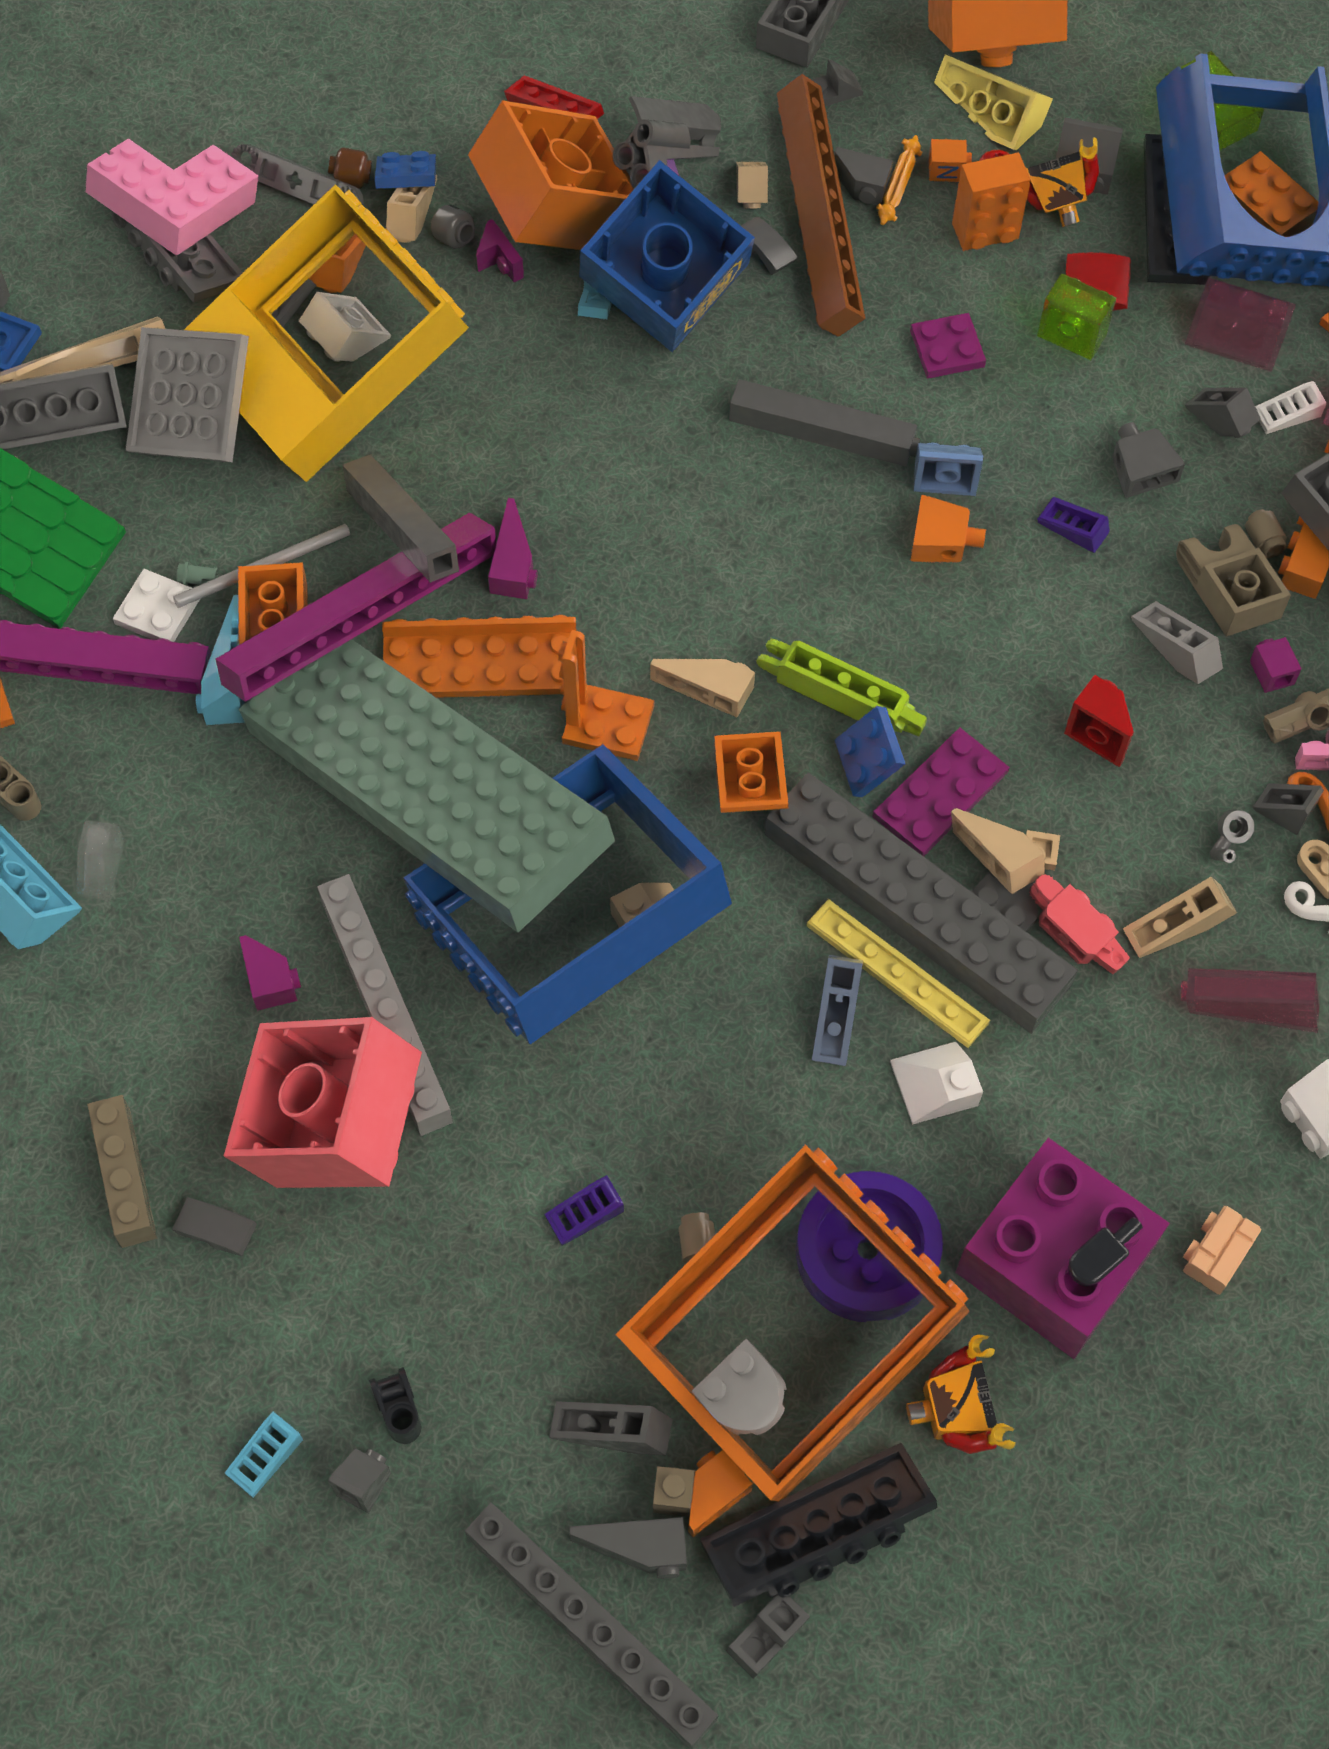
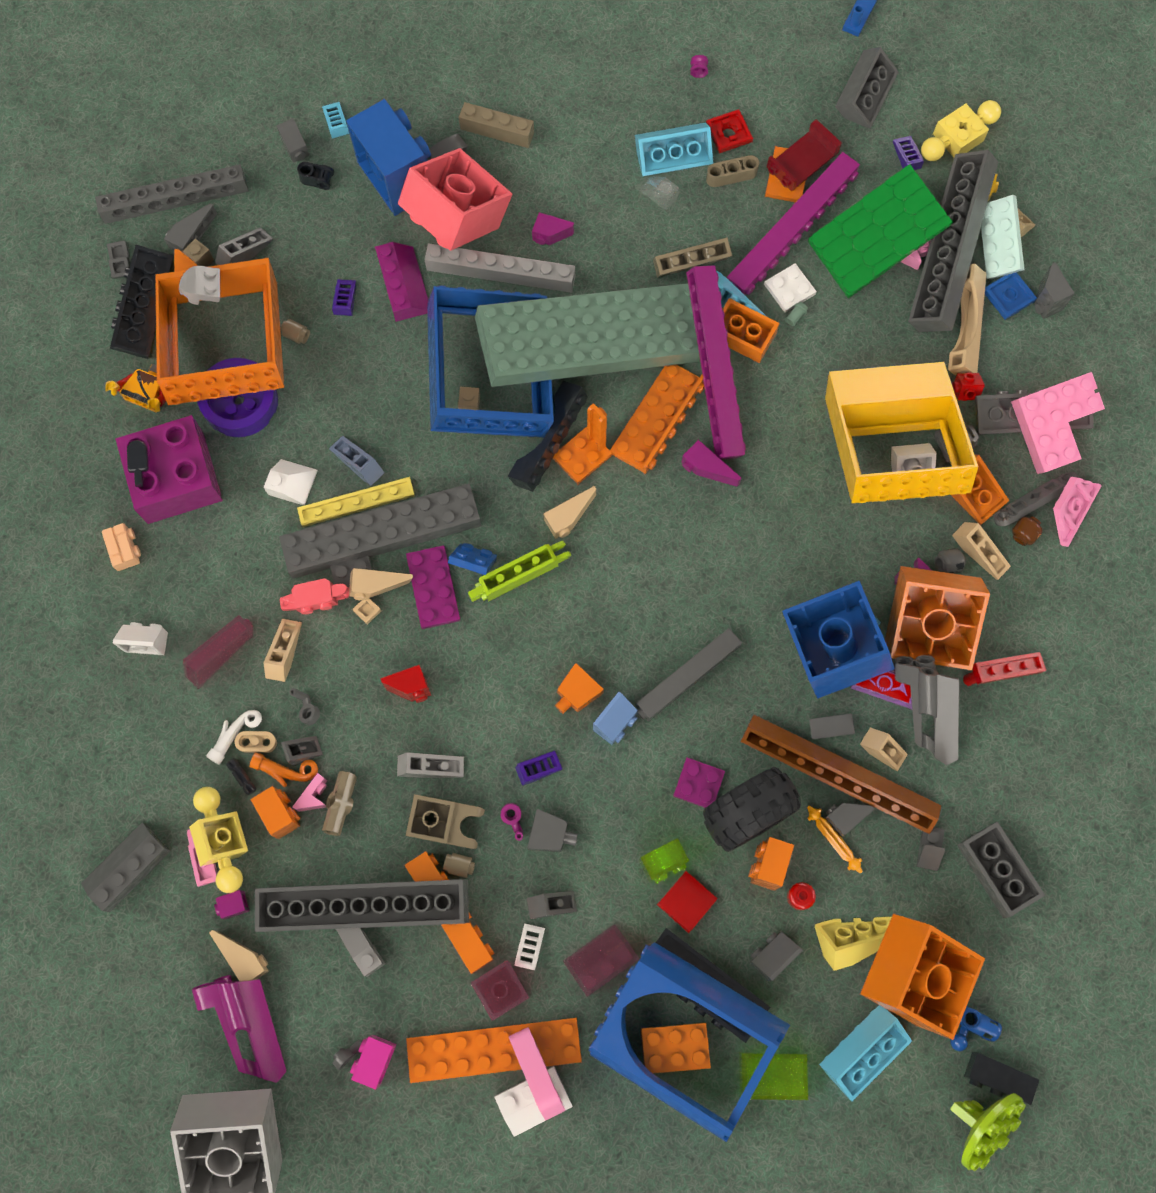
camera: 125 degrees right, 10 degrees up
(185, 311) = (967, 386): none -> red brick
(187, 394) = (903, 351): light grey plate -> none
(194, 746) = (692, 257): none -> dark tan brick
(277, 558) = (781, 344): light grey piece -> none
(293, 136) = (1073, 507): none -> bright pink wing
(303, 1259) = (386, 149): none -> blue brick
(401, 518) = (757, 411): dark grey brick -> none
(405, 170) = (1006, 558): blue plate -> none
(501, 1137) = (402, 280): none -> magenta slope
(682, 764) = (531, 467): none -> black arch
(750, 772) = (494, 489): orange slope -> none
(947, 158) = (828, 876): orange brick -> none
(950, 238) = (751, 808): none -> black tyre
(1064, 182) = (766, 921): torso -> none
(1115, 40) = (866, 1052): none -> medium azure slope
(1158, 514) = (513, 820): none -> magenta plate
(1275, 664) = (381, 806): magenta brick -> none

